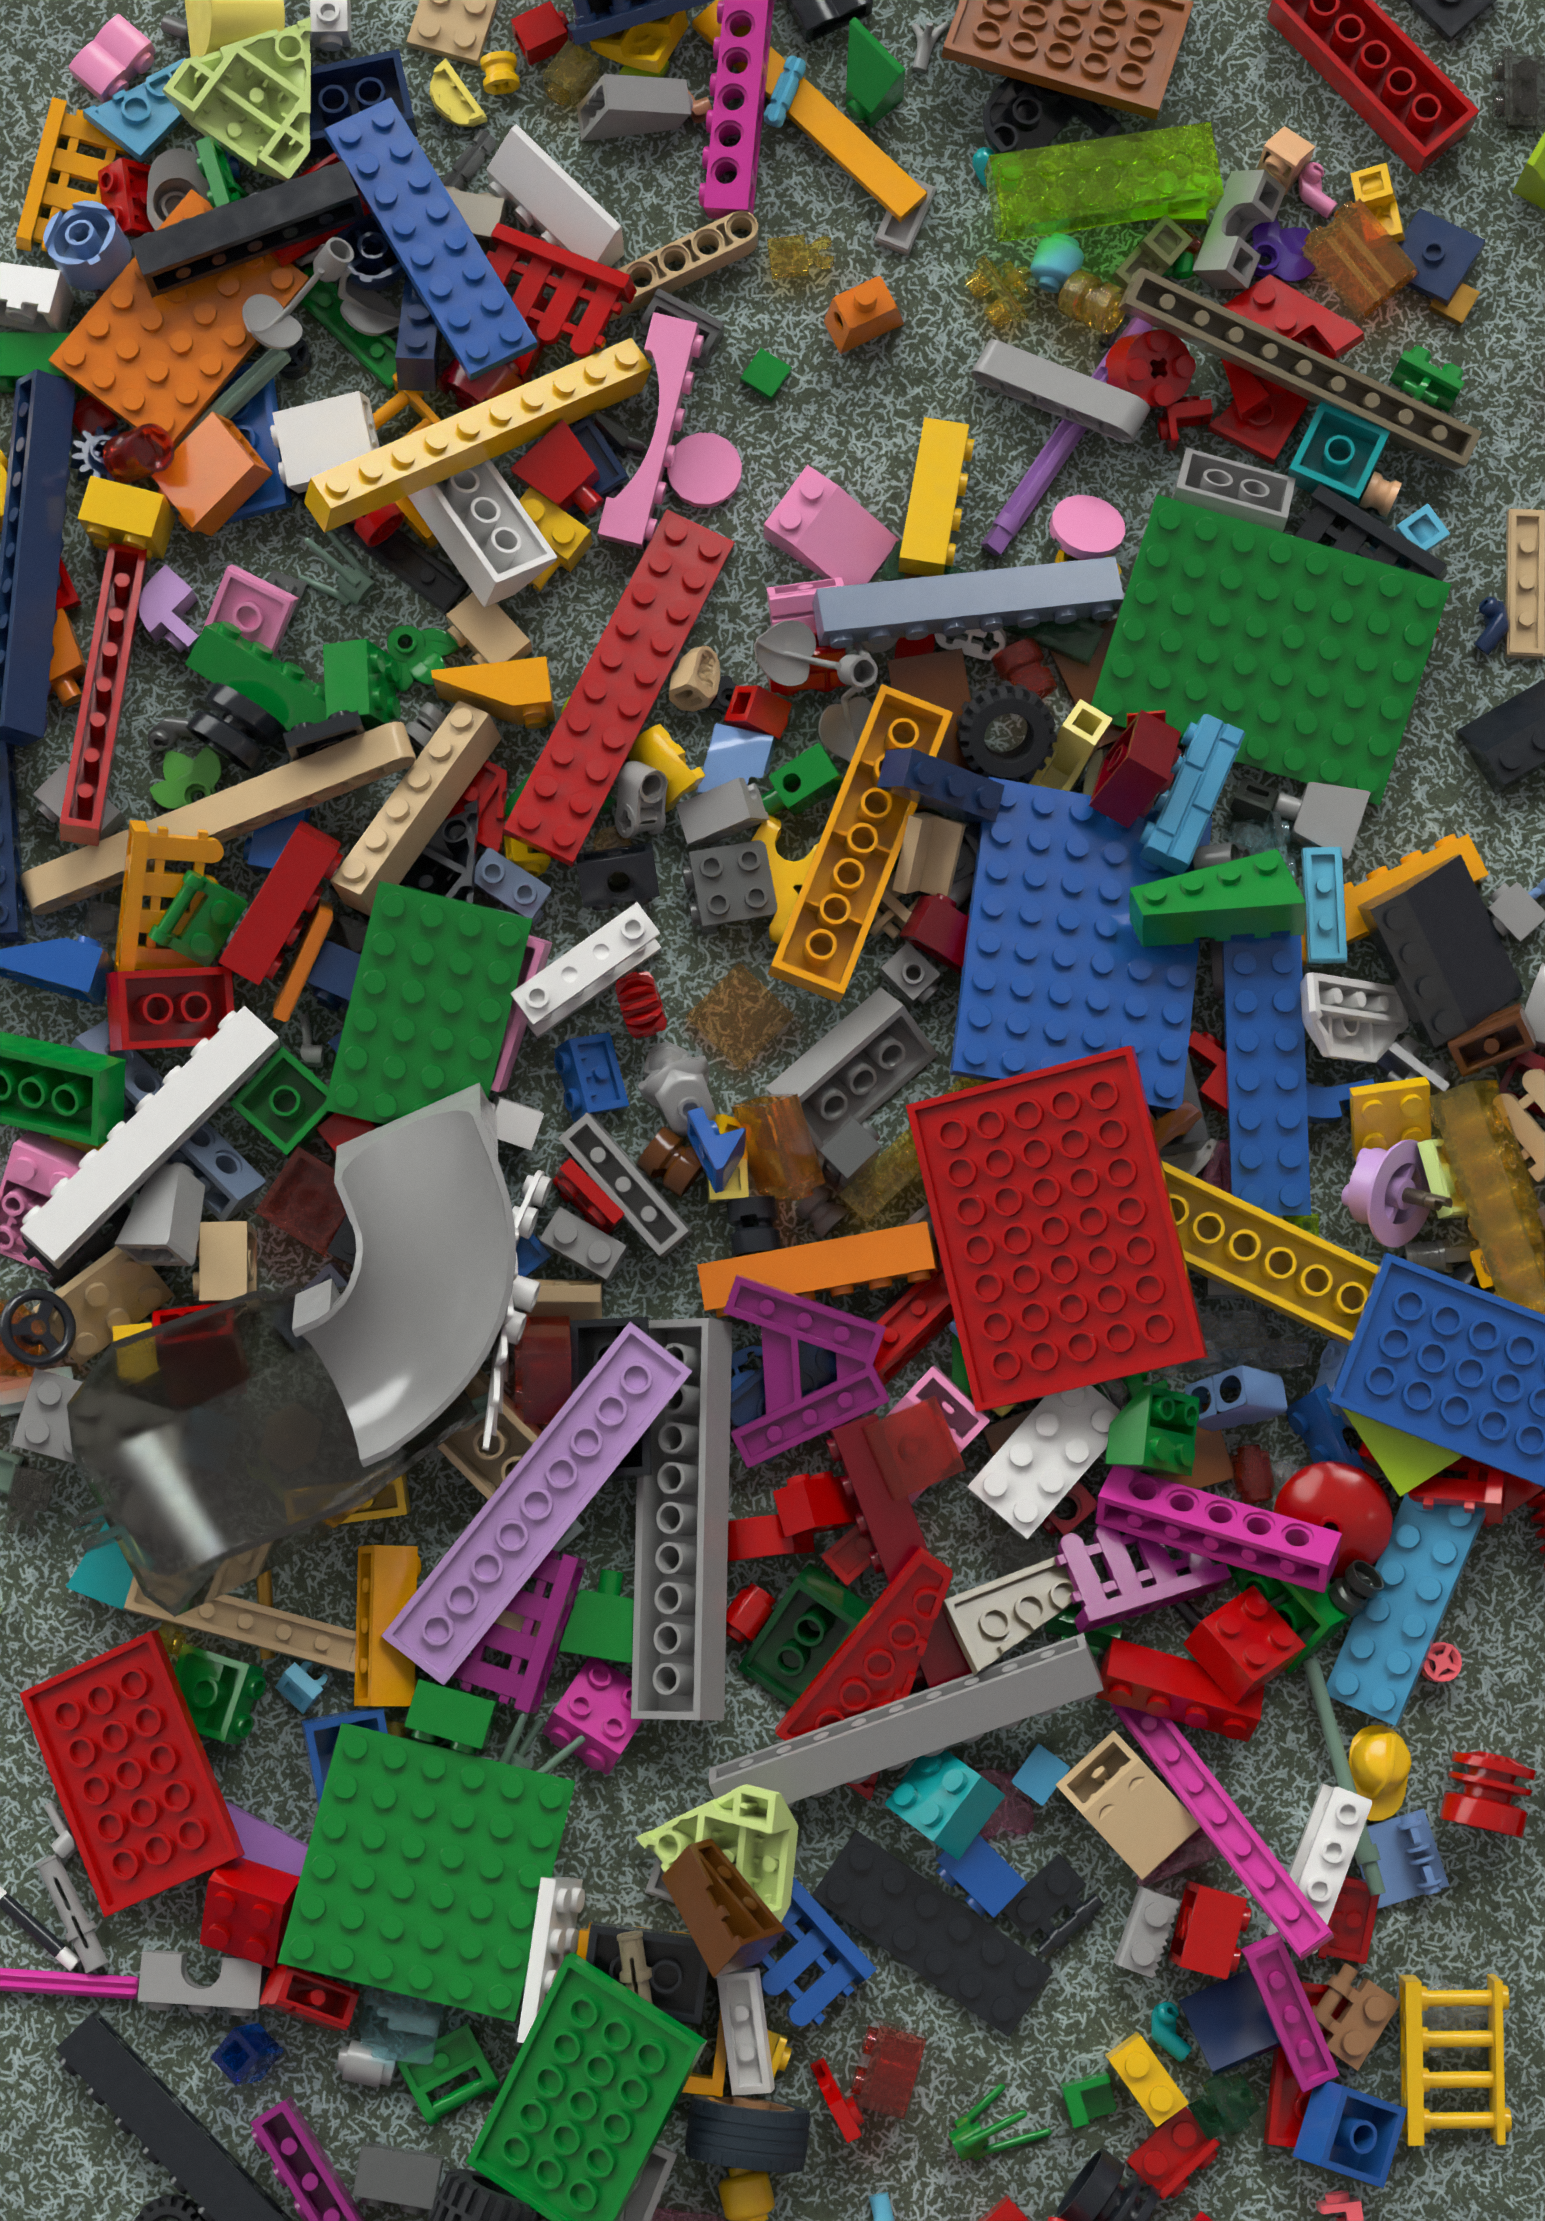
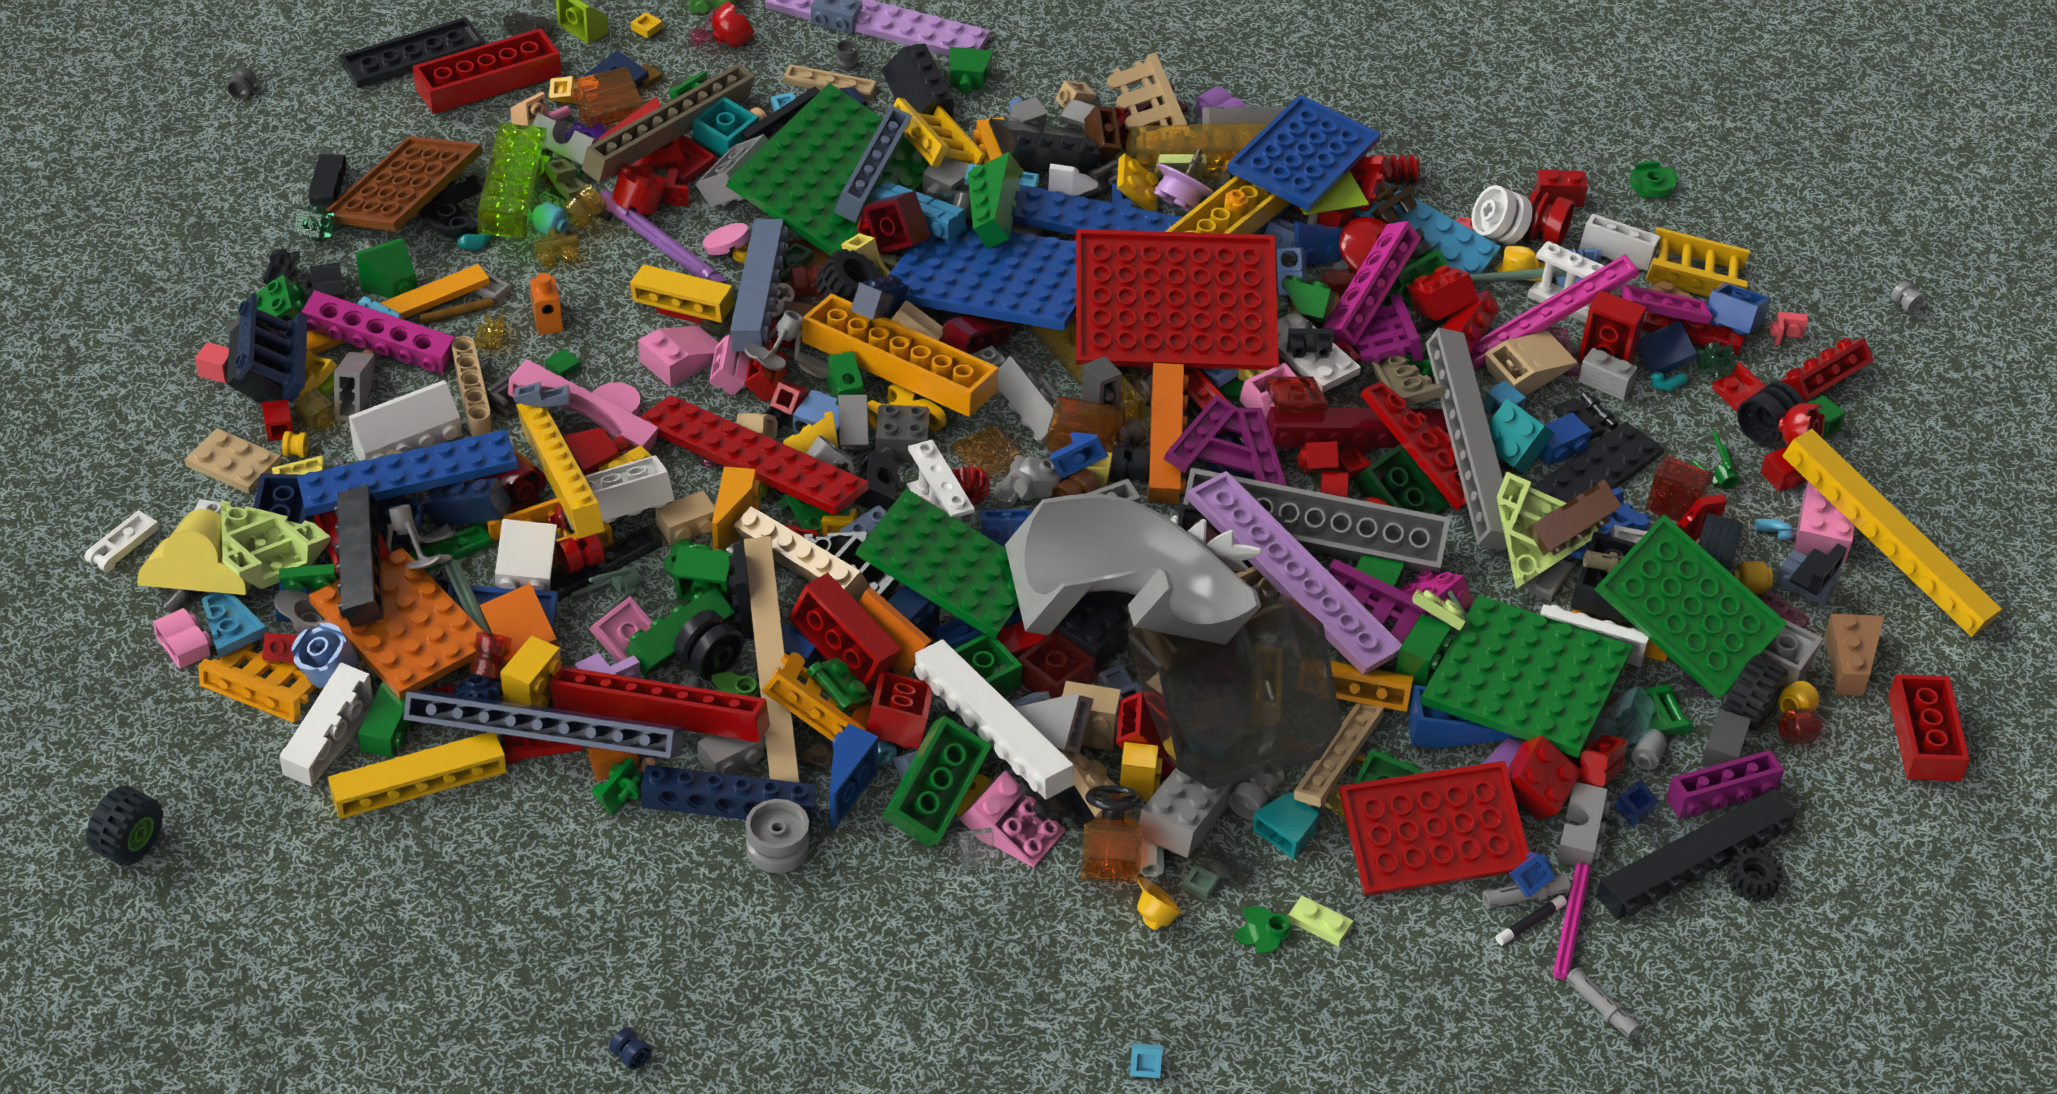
camera: 80 degrees left, 35 degrees down
(65, 1844) = (1474, 886): light grey hand -> none
(74, 1920) = (1532, 873): none -> blue bracket
(300, 1687) = (1389, 738): medium azure tile -> none
(506, 1733) = (1446, 611): none -> yellowish green plate
(576, 275) = (468, 415): red fence -> none
(627, 365) = (535, 396): none -> sand blue slope
(838, 194) = (456, 310): none -> pearl gold bar
(1028, 1434) = (1309, 340): none -> black hips
(1060, 391) = (635, 228): light grey beam -> none
(1088, 2098) = (1704, 423): green panel -> none
(1146, 2079) = (1696, 390): yellow brick -> none
(1274, 700) = (872, 164): none -> sand blue brick
(1301, 1281) = (1236, 200): none -> light orange plate
(1372, 766) = (939, 136): none -> yellow fence
(1425, 1532) = (1403, 199): none -> dark brown hips
(1454, 1718) = (1501, 215): none -> white wheel
(1470, 1923) = (1619, 239): none -> white brick

